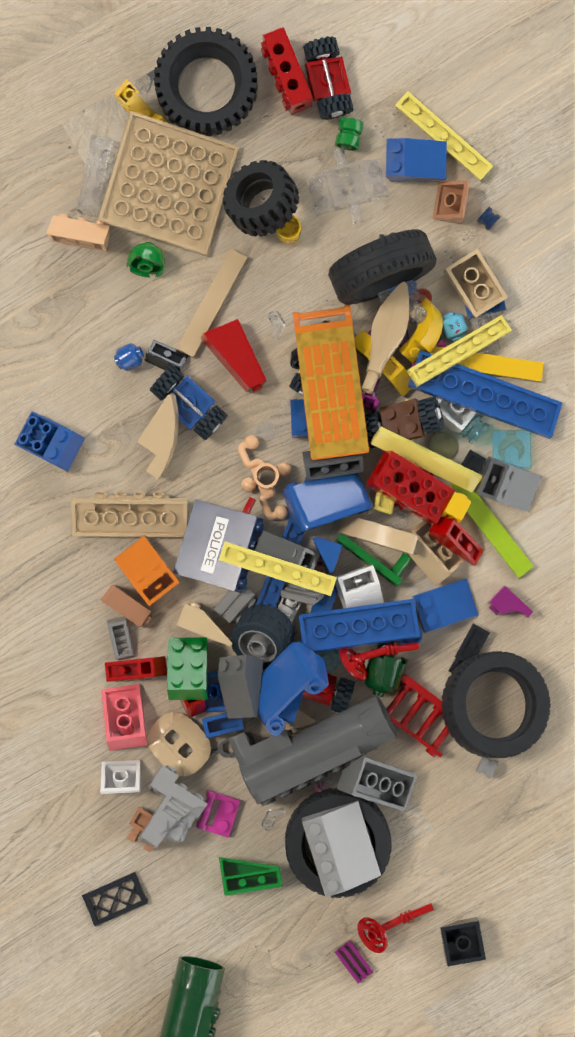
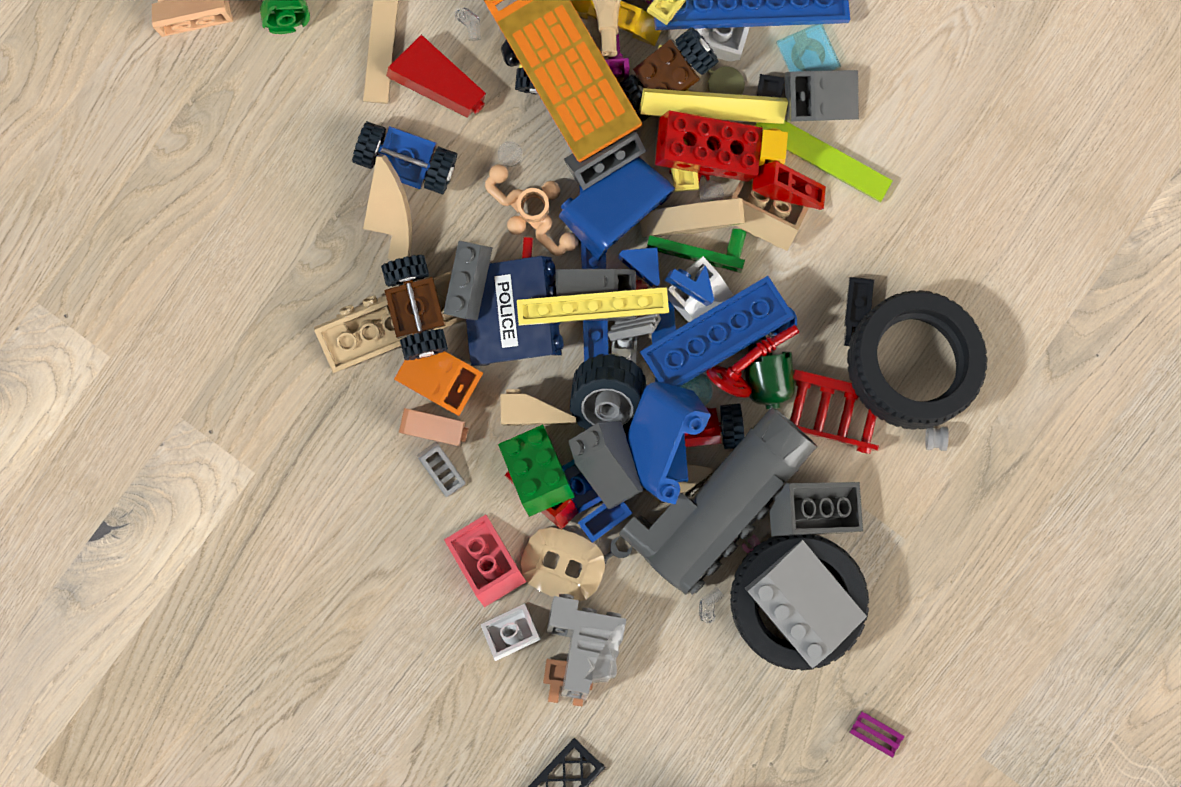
camera: 15 degrees left, 0 degrees up
(49, 441) = (259, 272): blue slope -> none
(129, 356) = (311, 133): blue head -> none
(136, 668) = (474, 497): red slope -> none
(149, 514) = (414, 307): none -> plate
(165, 356) = (353, 115): black slope -> none
(196, 511) = (468, 280): none -> dark grey brick
(224, 817) = (652, 627): dark pink plate -> none
(234, 603) = (557, 372): light grey brick -> none
(248, 877) = (711, 686): green wedge -> none
(298, 419) = (543, 123): blue slope -> none
(359, 587) = (699, 288): none -> blue slope
(379, 930) = (892, 682): red dish -> none
(445, 605) = (807, 270): blue slope -> none
(462, 942) = (995, 656): black slope -> none
(474, 430) = (755, 48): clear light blue wheel -> none
(507, 601) = (878, 234): magenta arch -> none

